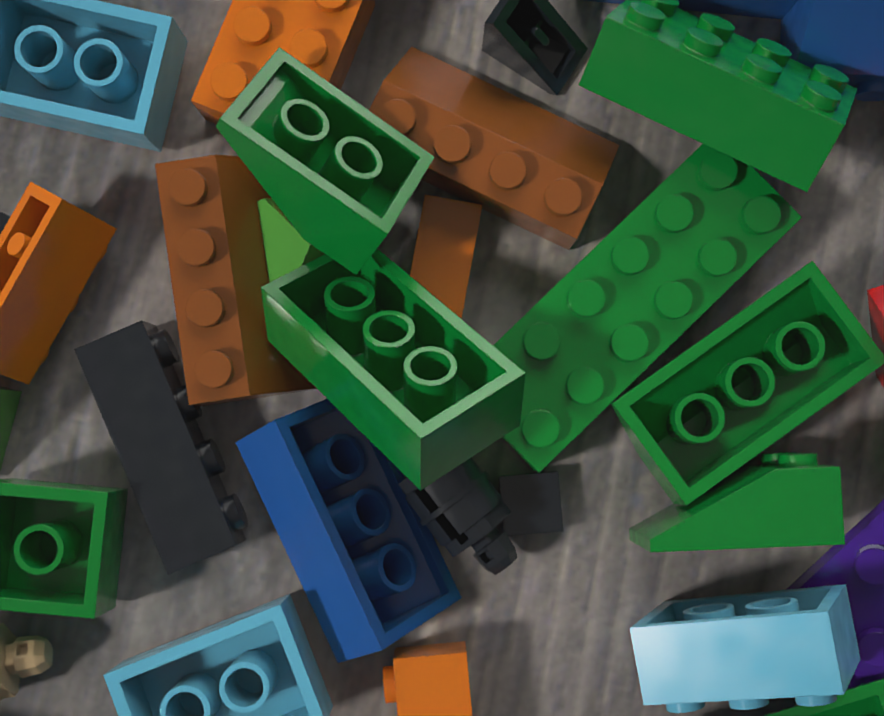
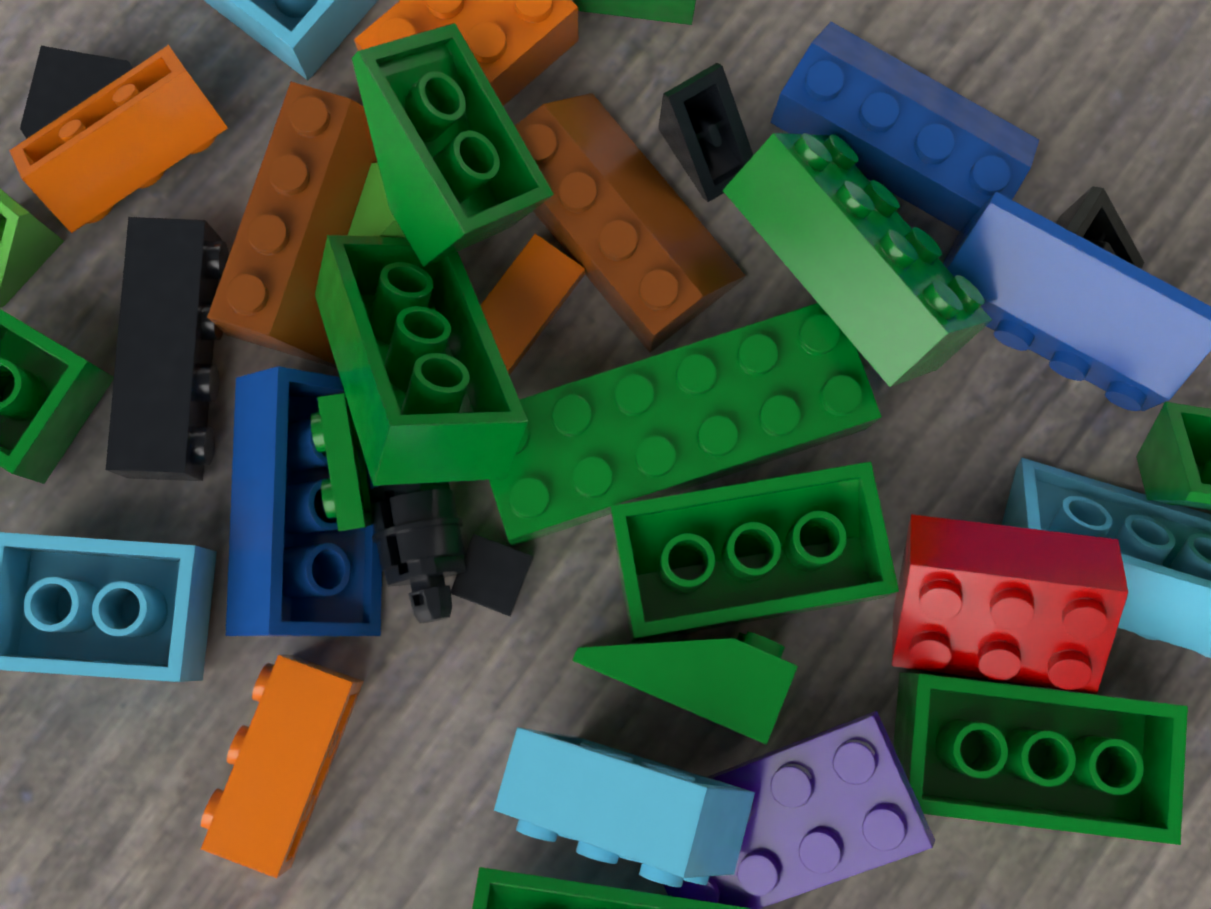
camera: 20 degrees right, 5 degrees down
(382, 495) = (348, 488): none -> green plate

